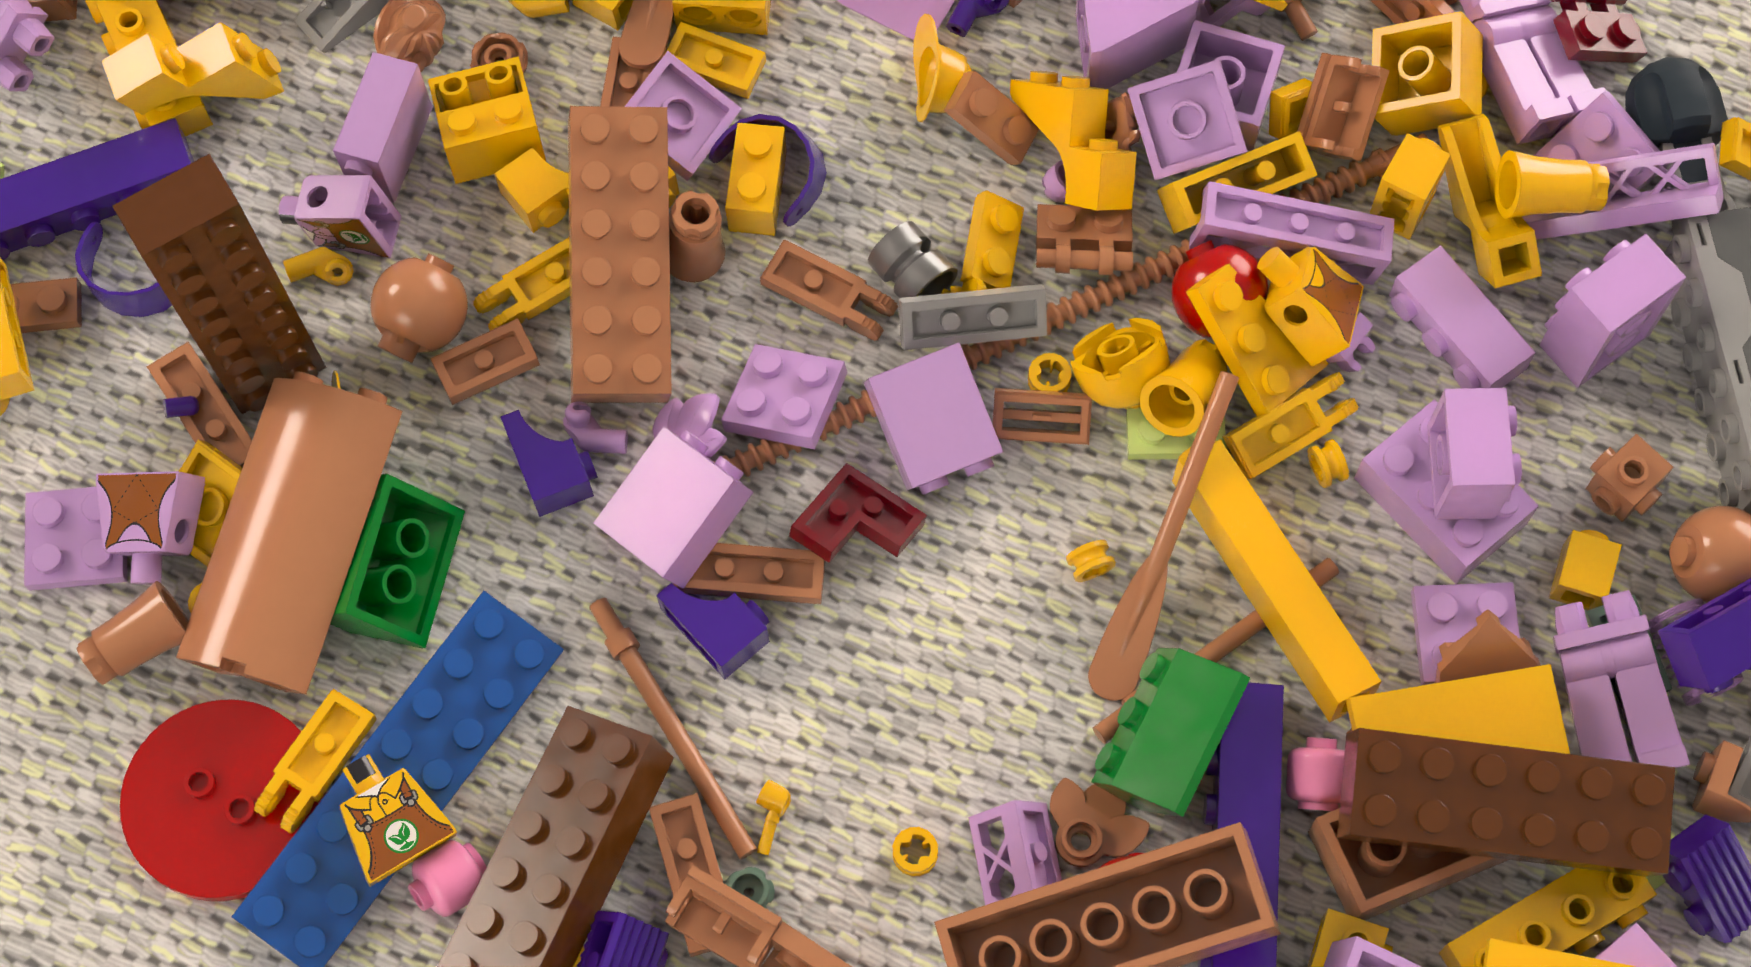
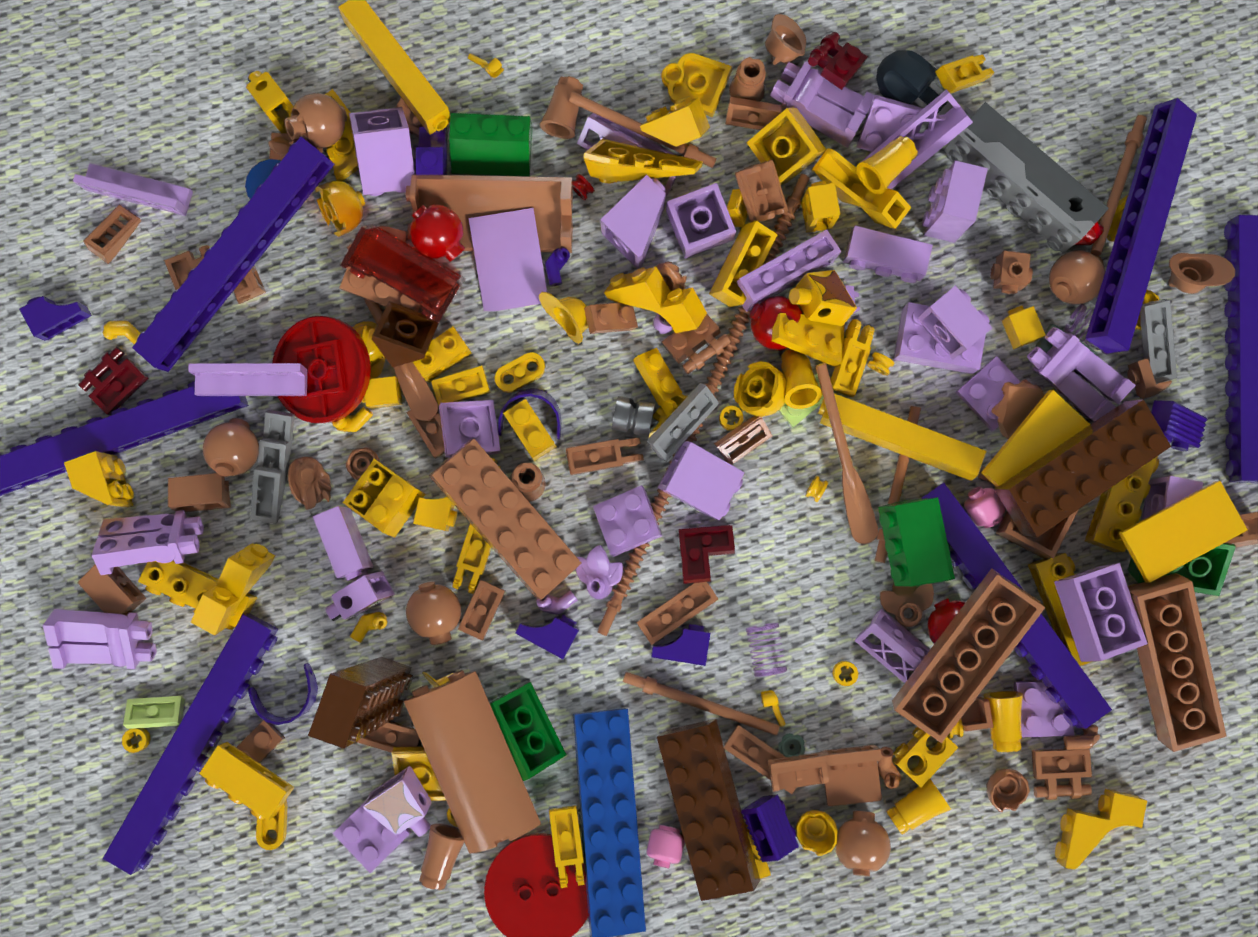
camera: 40 degrees left, 15 degrees up
(179, 406) = (367, 742): dark purple piece -> none
(390, 819) = (626, 847): torso -> none
(674, 505) = (627, 613): lavender brick -> none
(810, 99) = (518, 369): none -> yellow plate
(818, 753) = (776, 670): none -> lavender piece
(1187, 119) = (704, 254): lavender plate -> none

